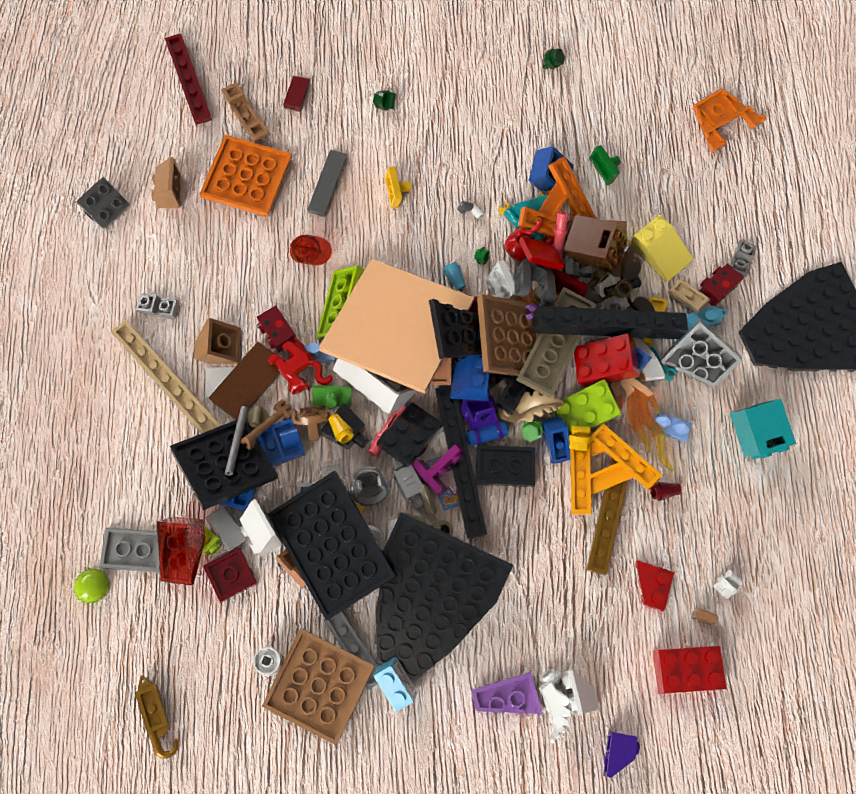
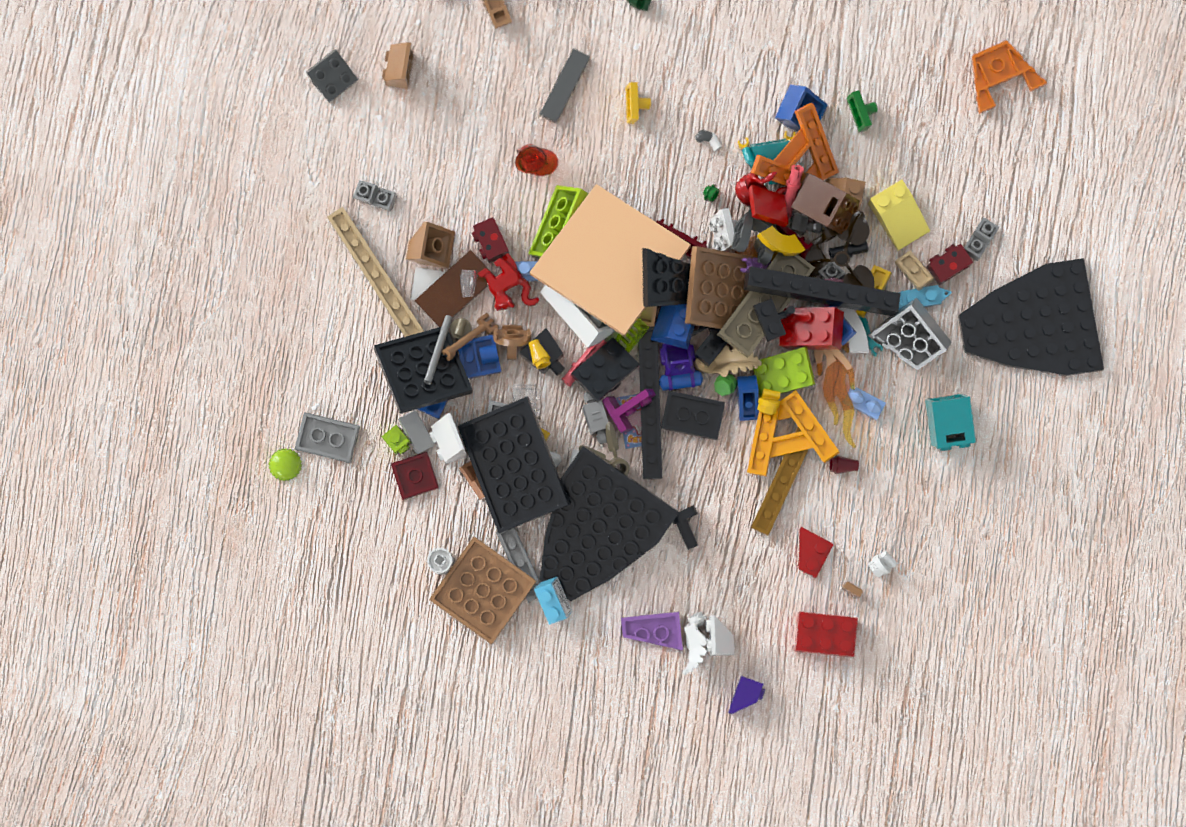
camera: 15 degrees right, 10 degrees up
(154, 716) = (331, 592): pearl gold plate -> none
(180, 548) = (372, 444): clear red slope -> none
(246, 175) = (481, 65): orange plate -> none
(259, 371) = (468, 282): none -> clear cone
(332, 395) = (535, 318): bright green tile -> none
(369, 486) = (557, 414): light grey helmet -> none
(440, 387) = (641, 327): none -> clear neon green slope
(455, 276) = (679, 211): medium azure cone -> none
(518, 580) = (684, 527): none -> black piece
(560, 283) = (782, 243): none -> yellow tile
(567, 357) = (771, 320): none -> black plate

